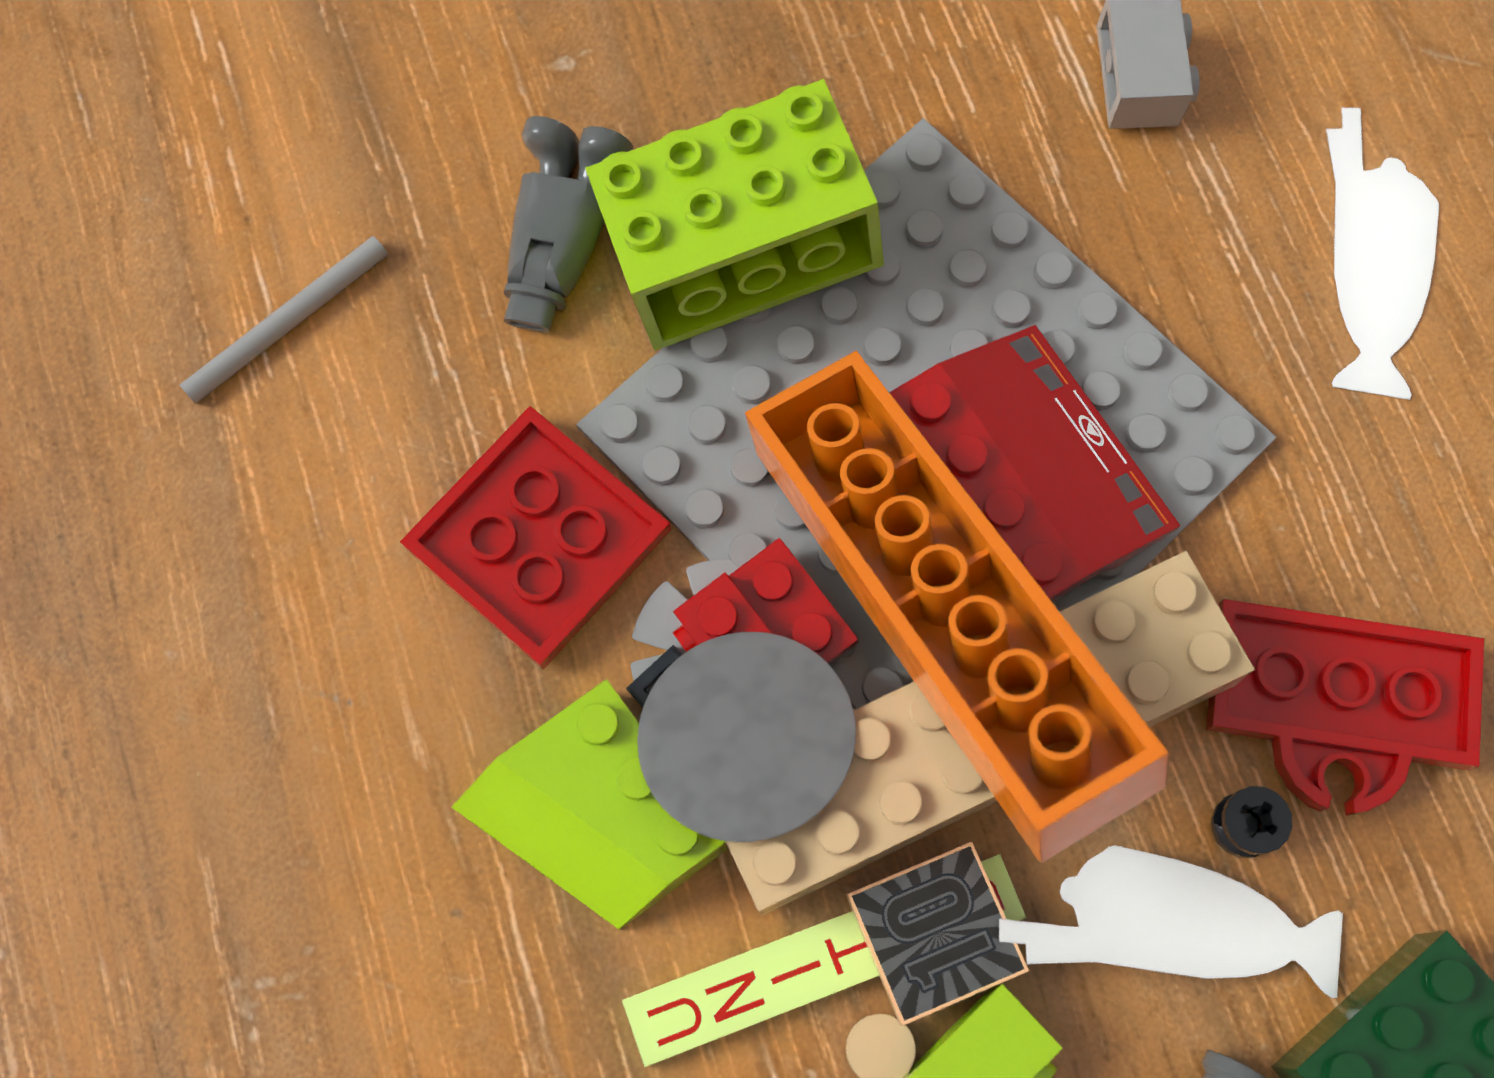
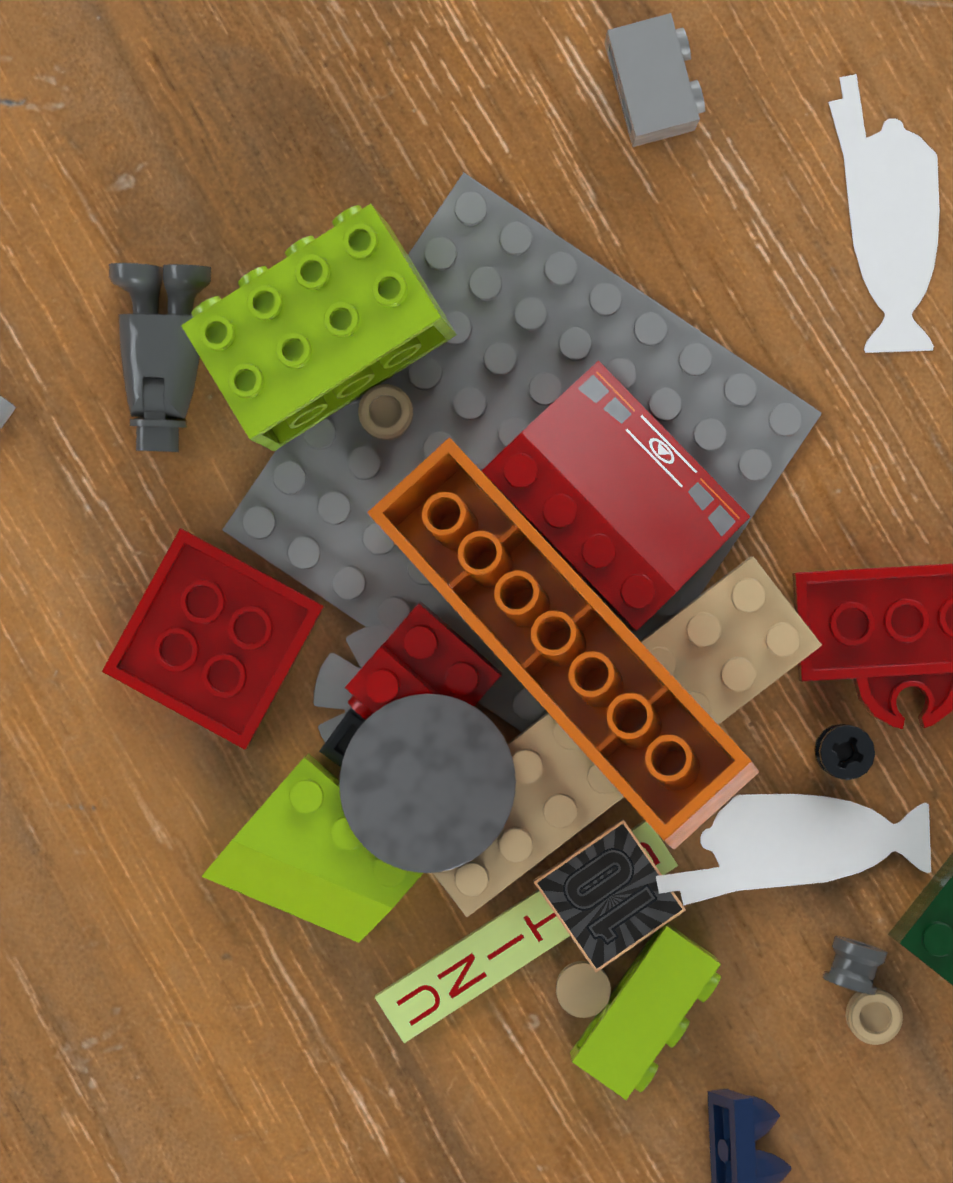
camera: 15 degrees left, 15 degrees up
(787, 331) = (385, 412): none -> tan tile

